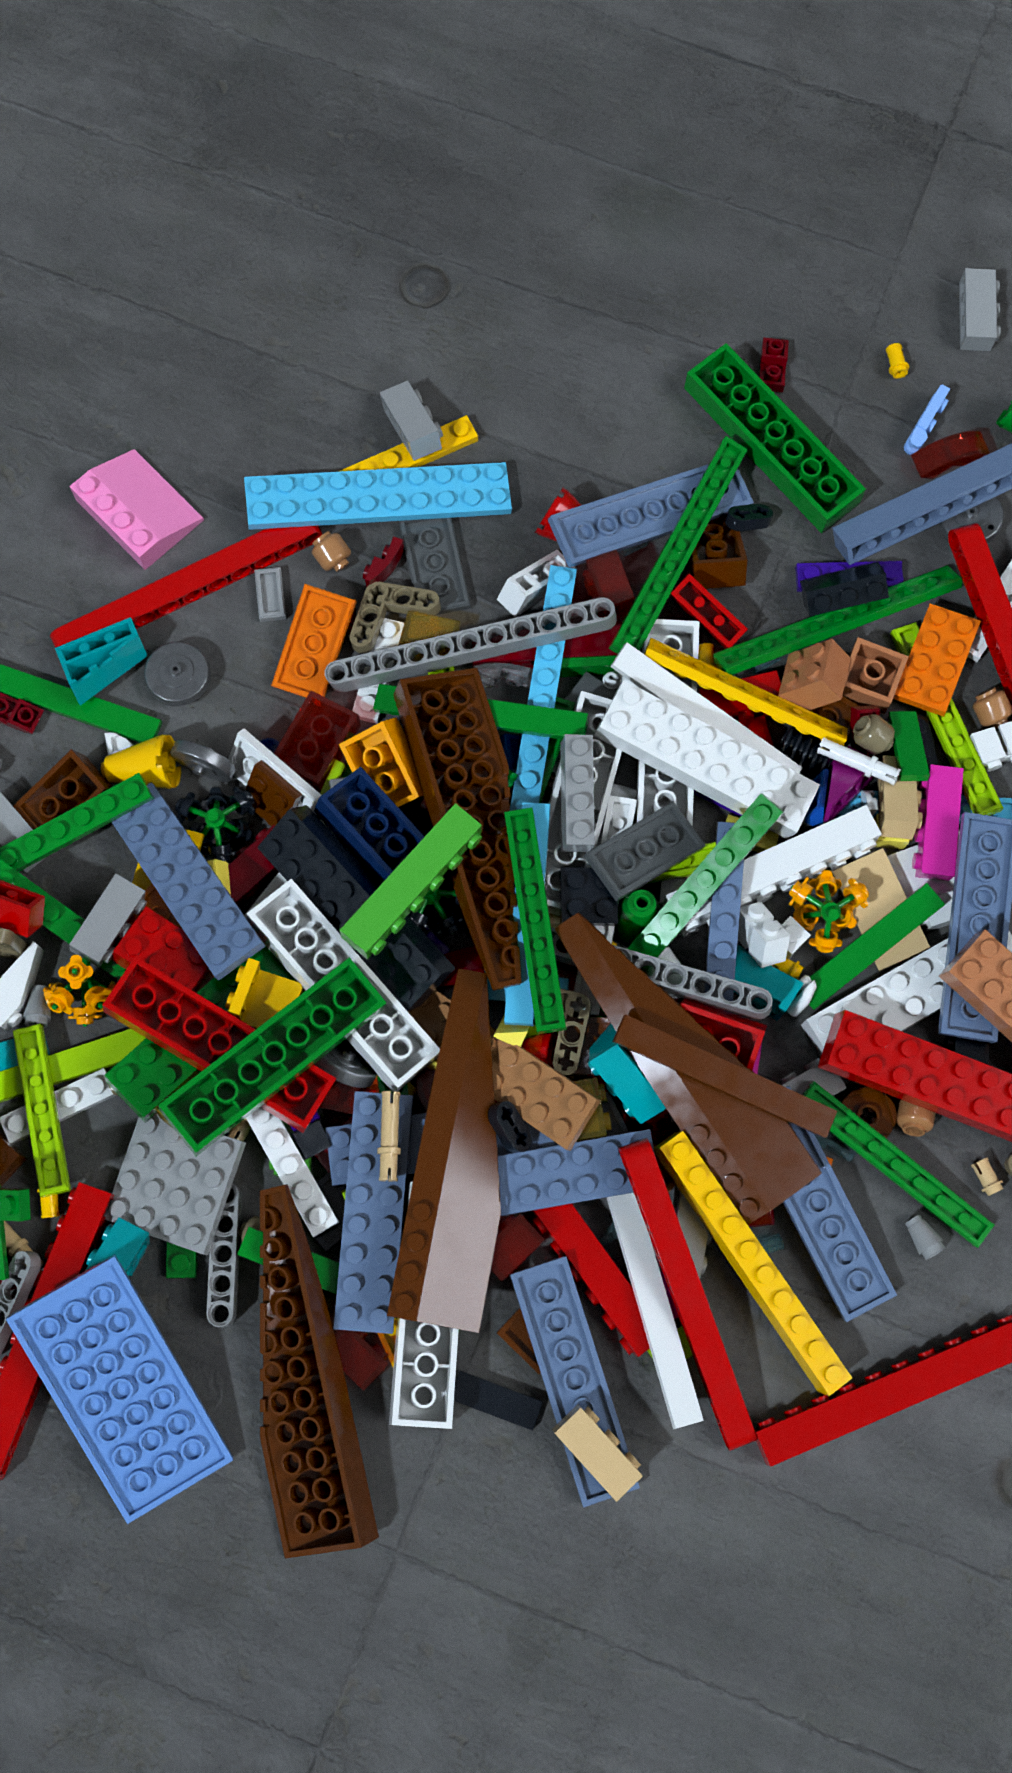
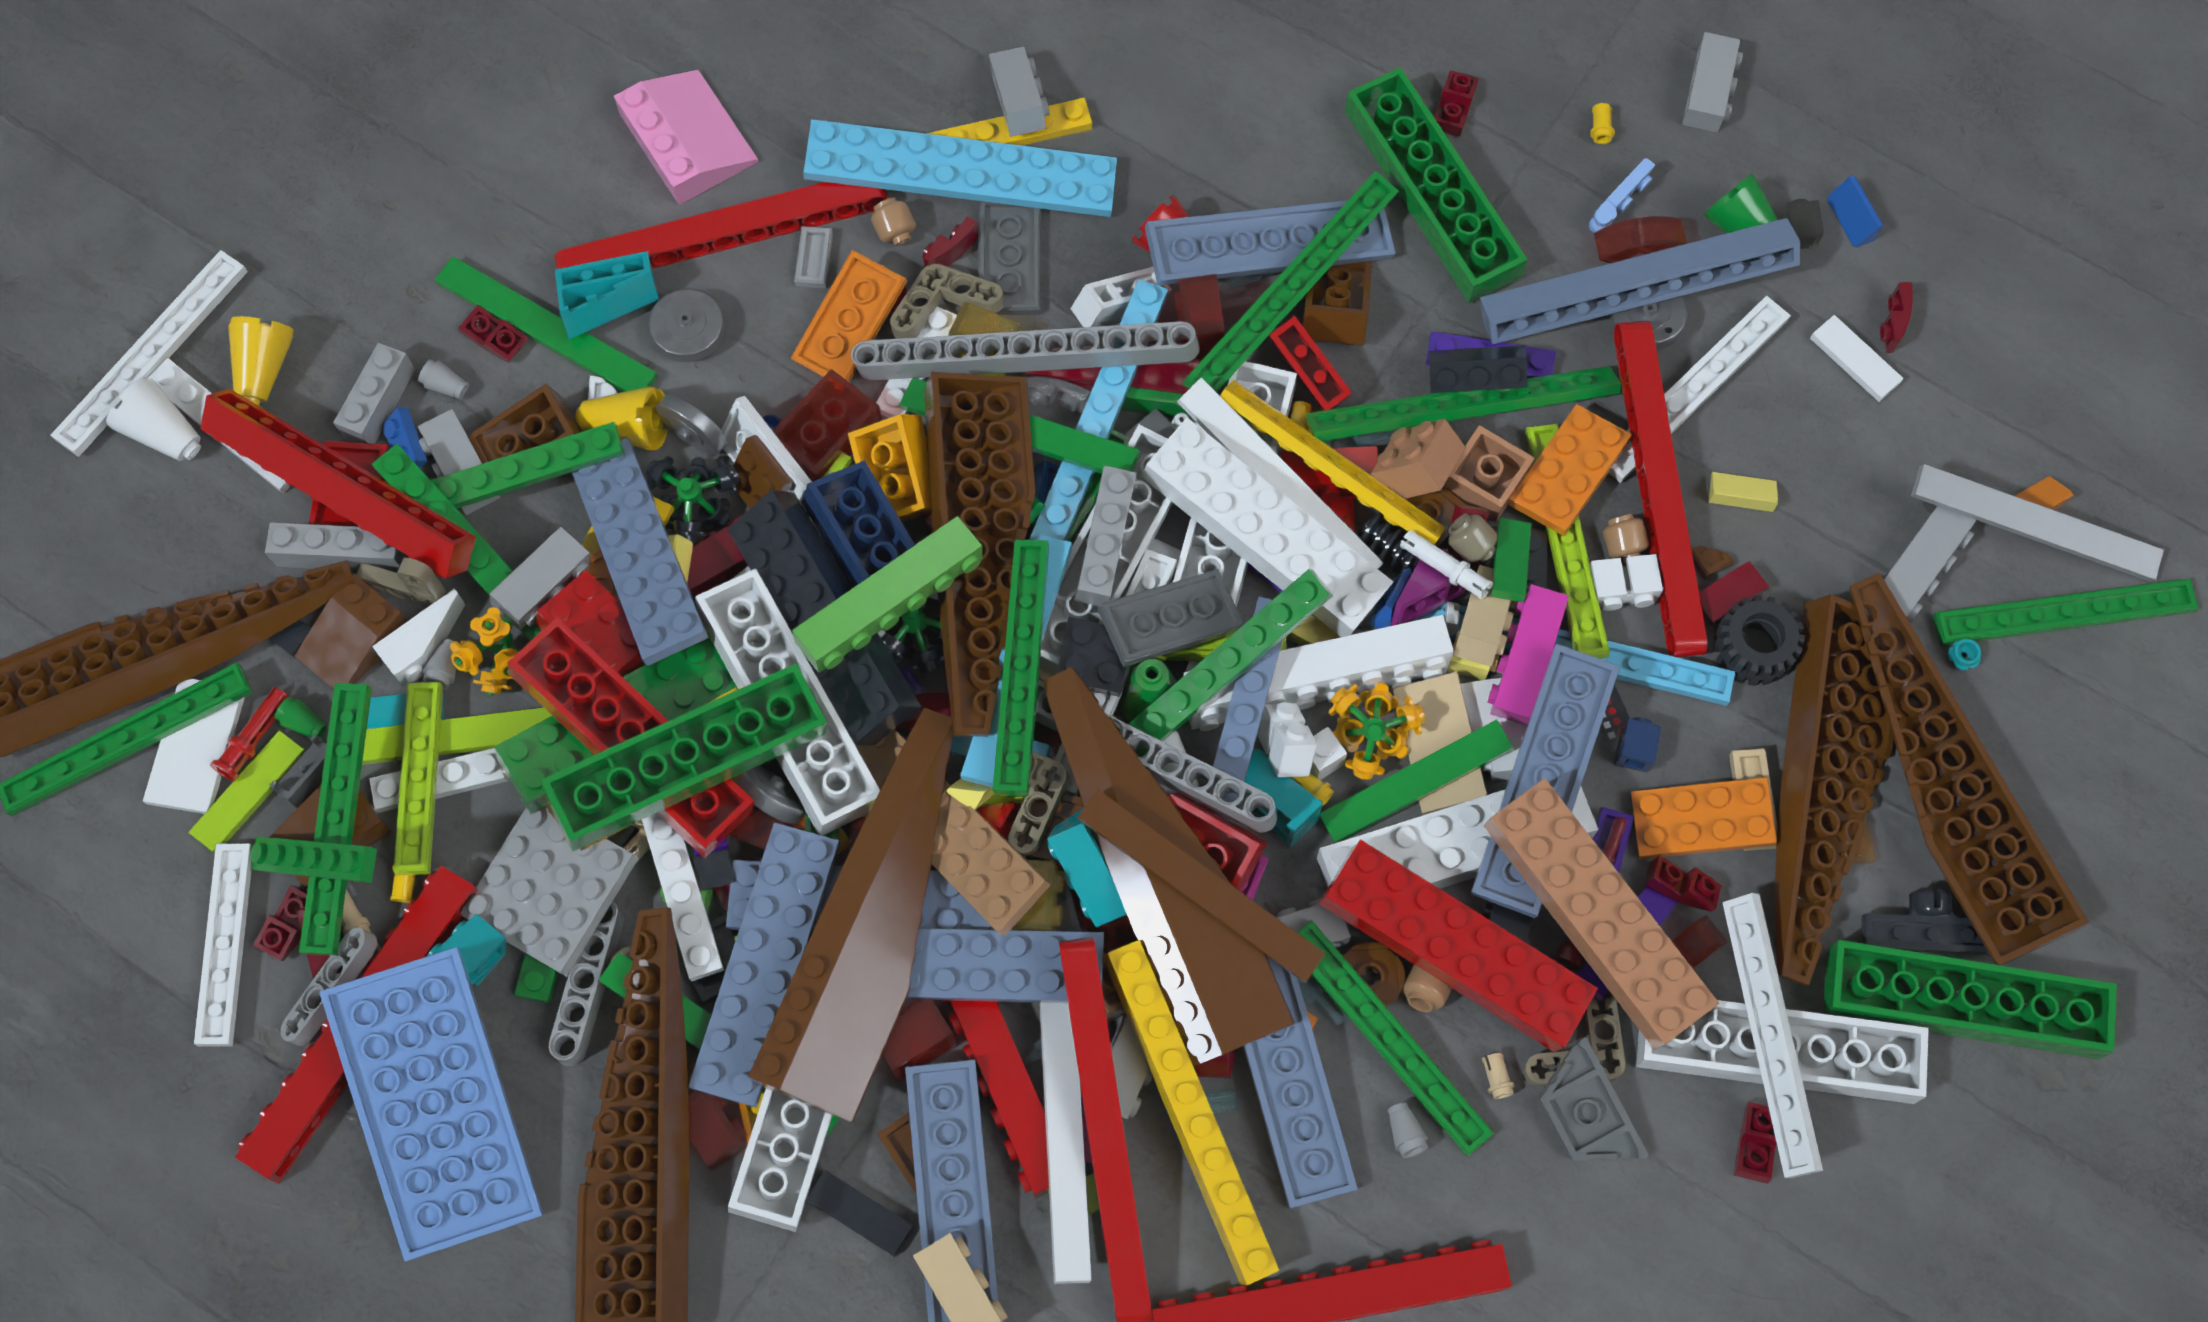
camera: 15 degrees right, 5 degrees down
(260, 994) = (686, 686): yellow bracket -> none
(389, 1136) = (796, 893): tan pin -> none
(509, 1127) = (941, 896): black beam -> none
(749, 517) = (1385, 269): black beam -> none
(804, 998) = (1324, 826): white arm -> none

